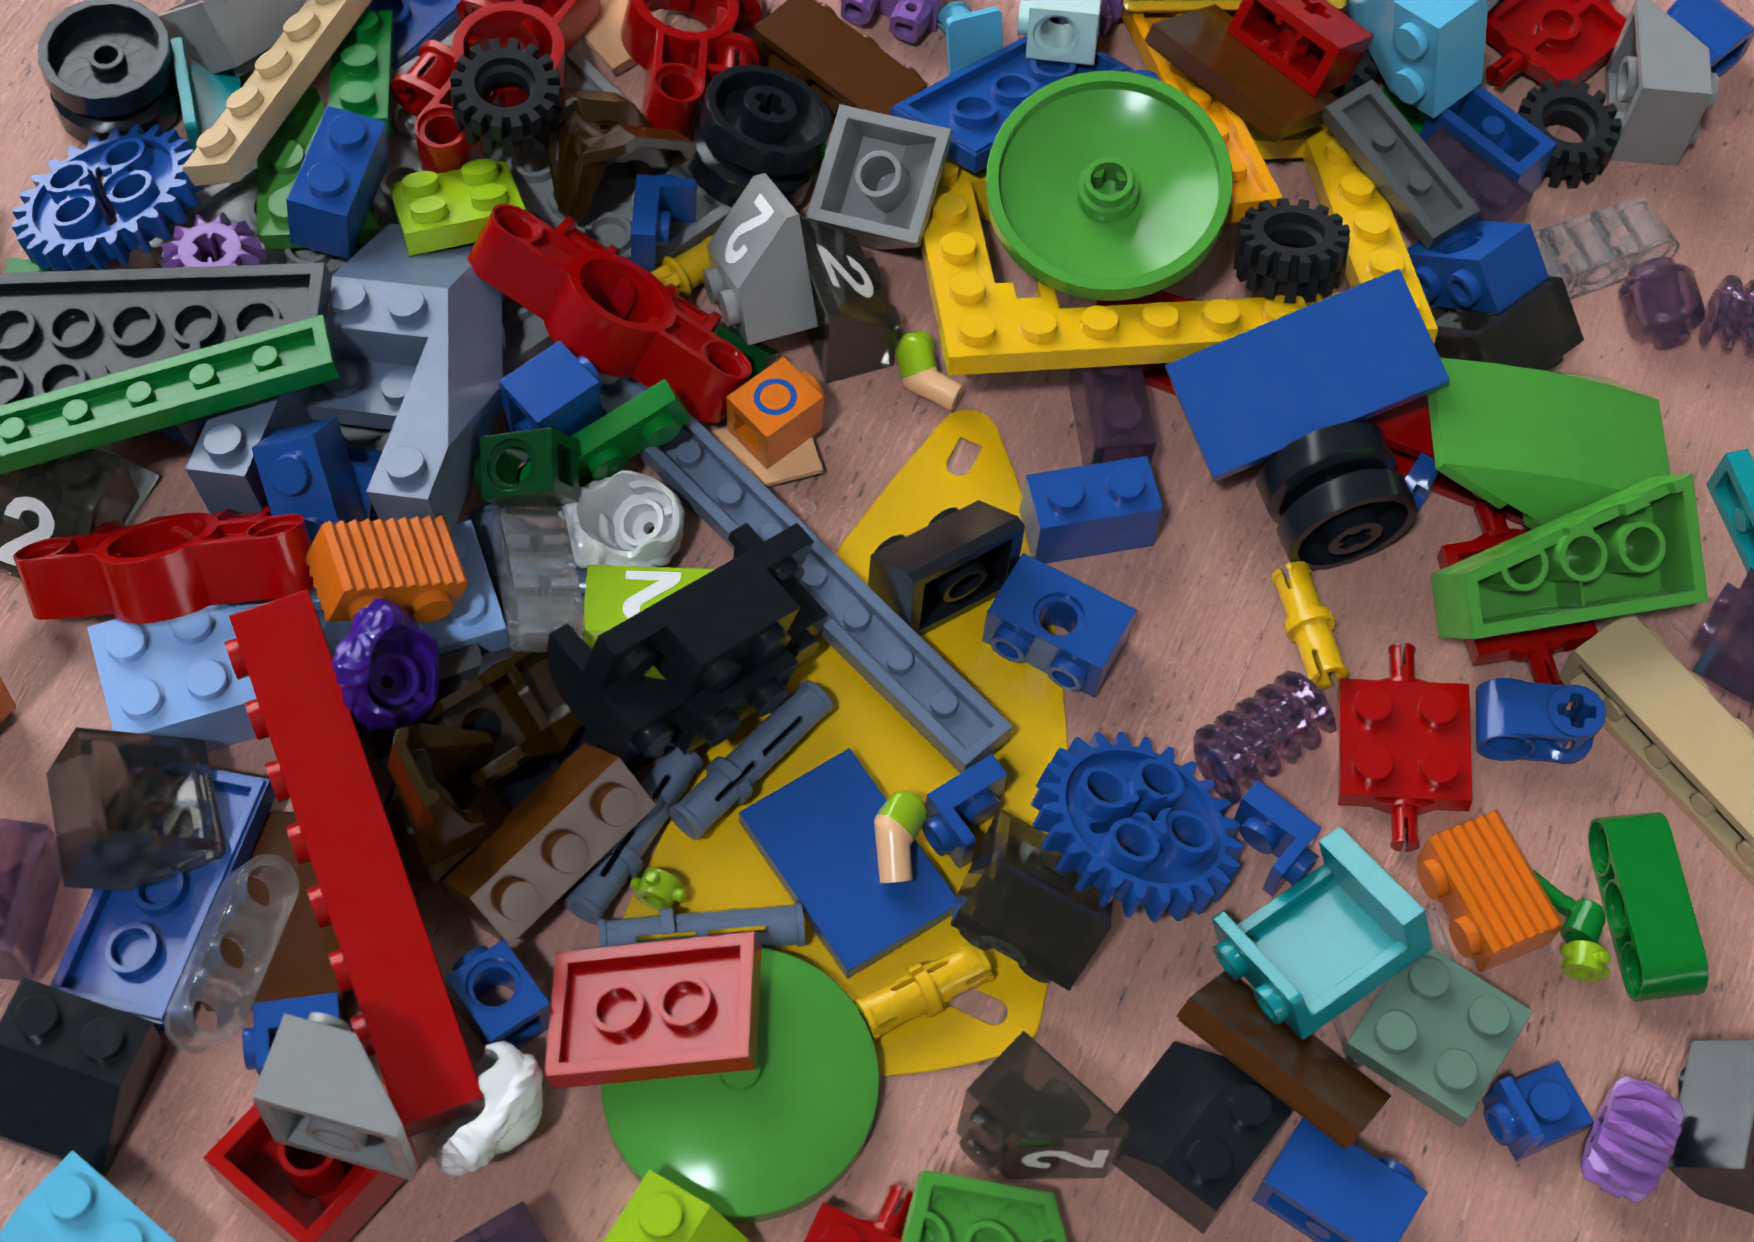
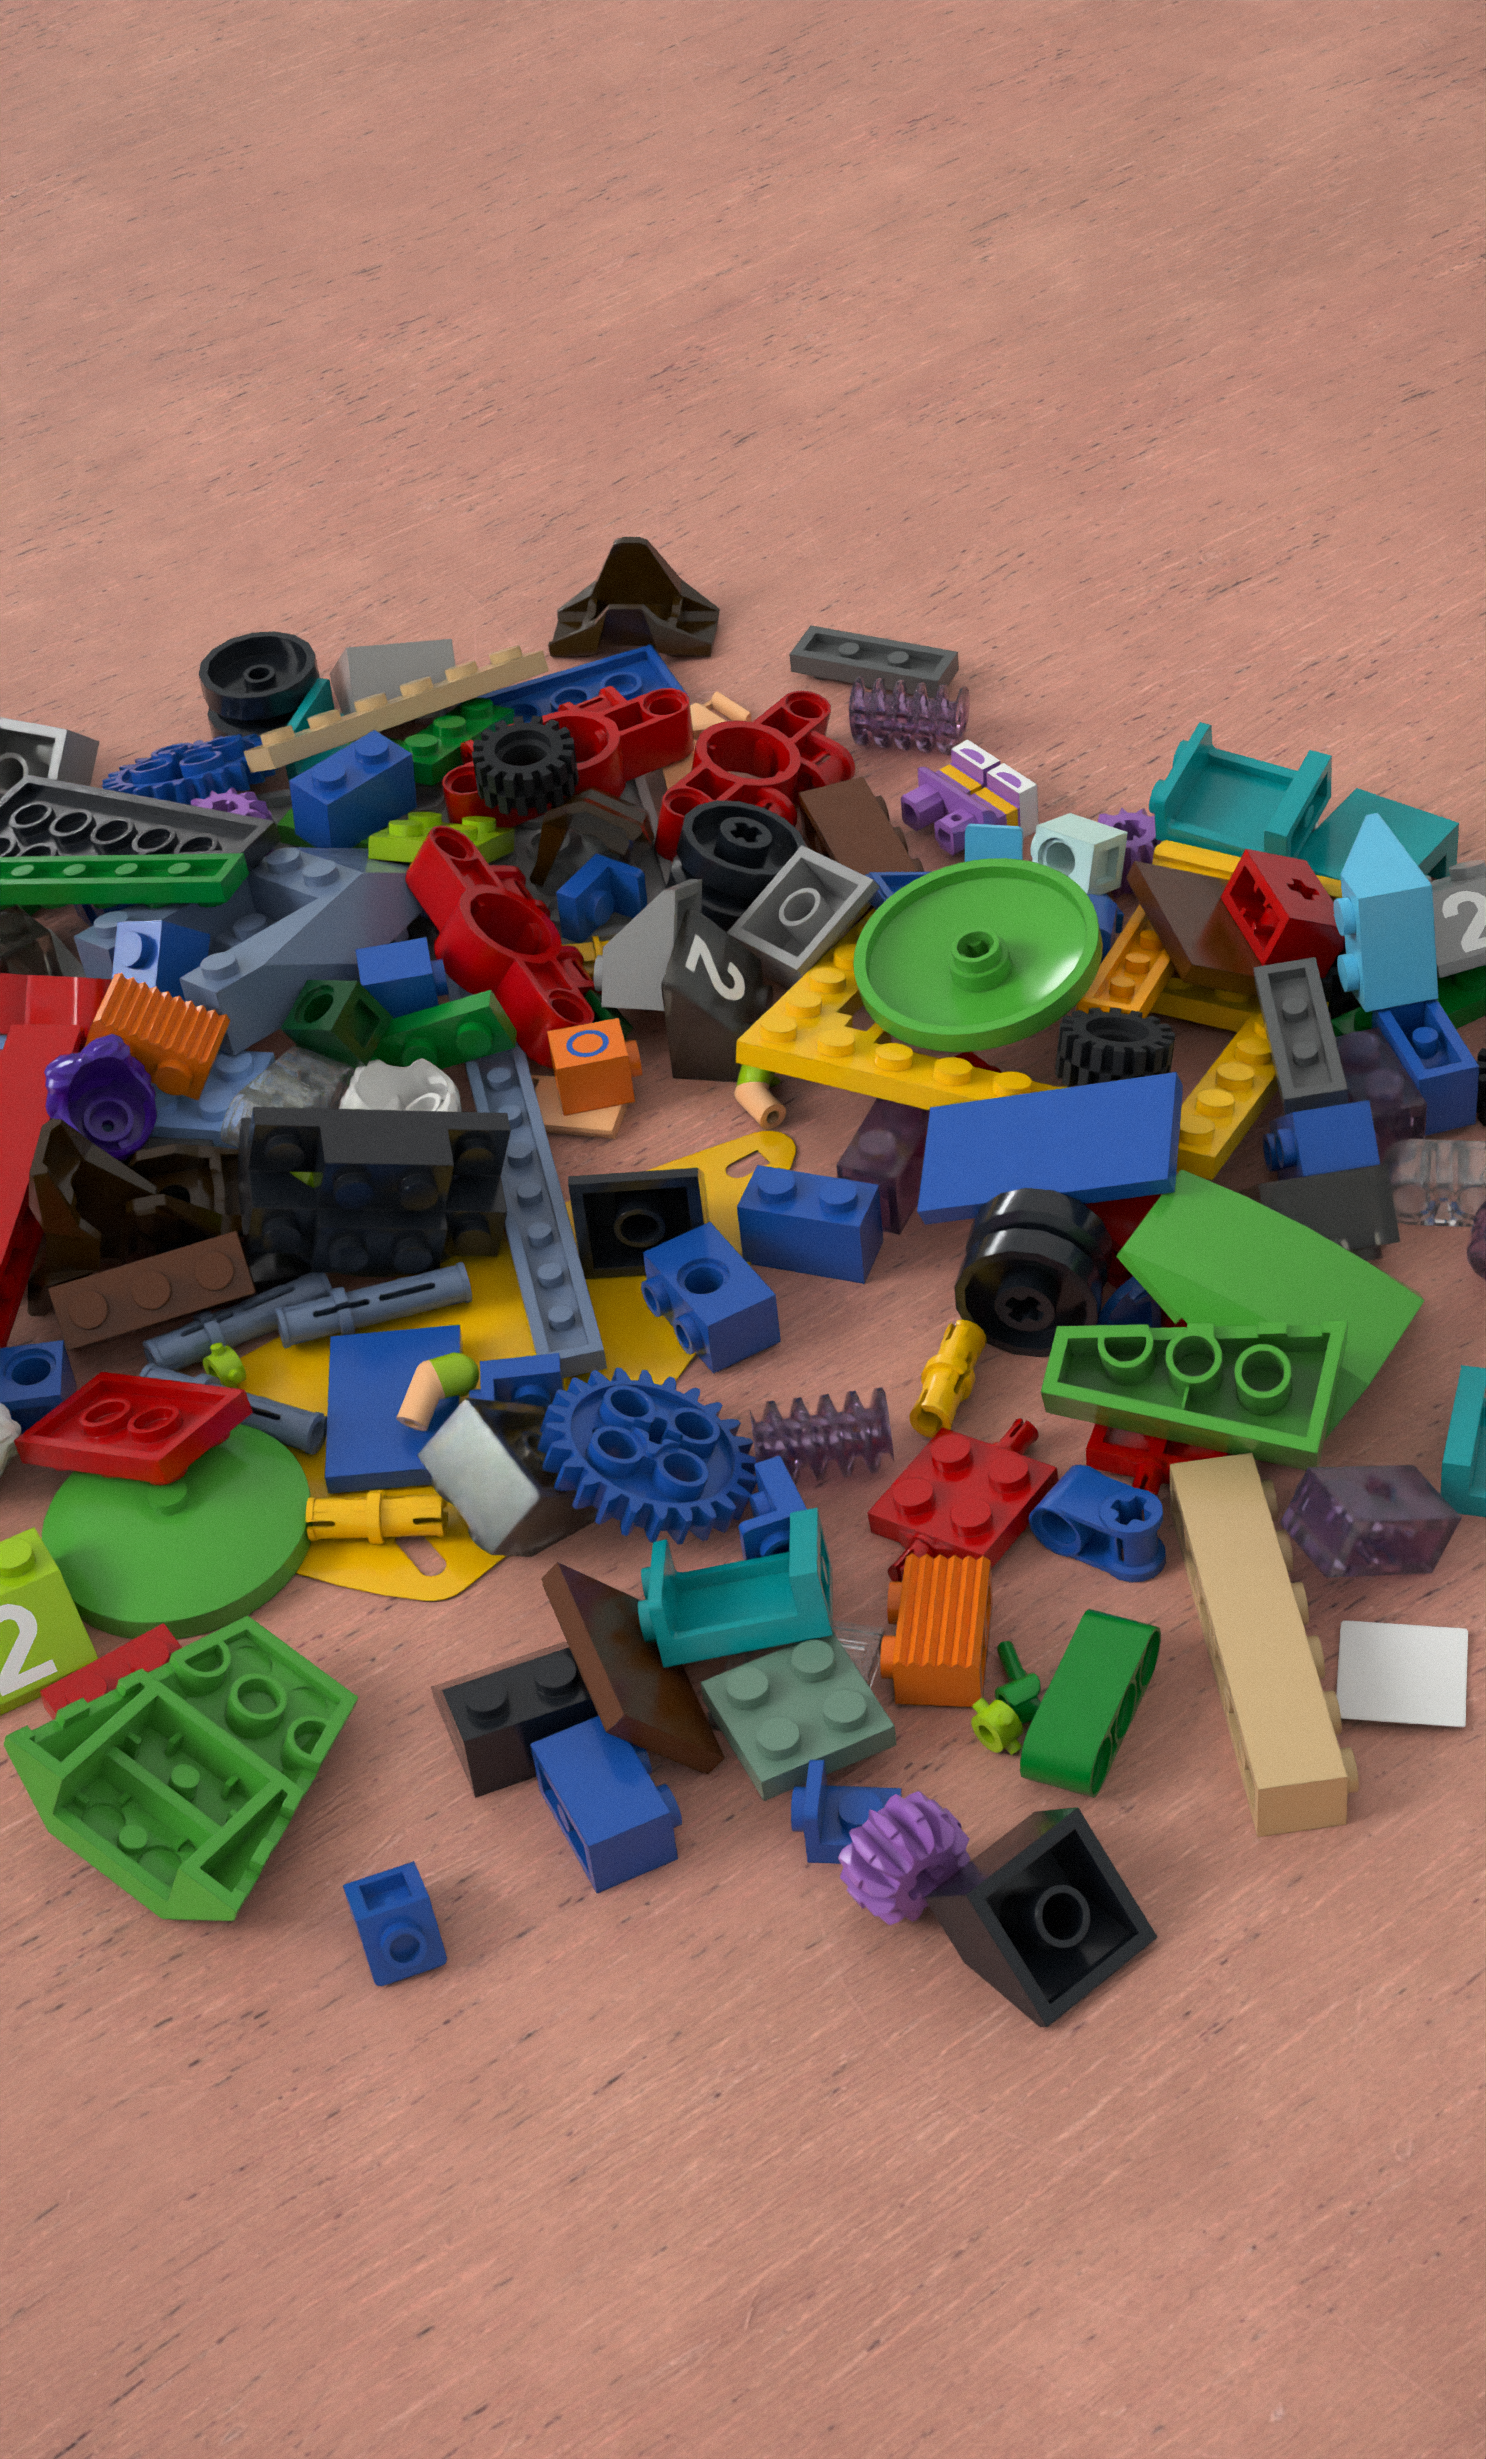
camera: 40 degrees right, 20 degrees down
(1038, 1119) = (369, 1621): clear smoke slope -> none

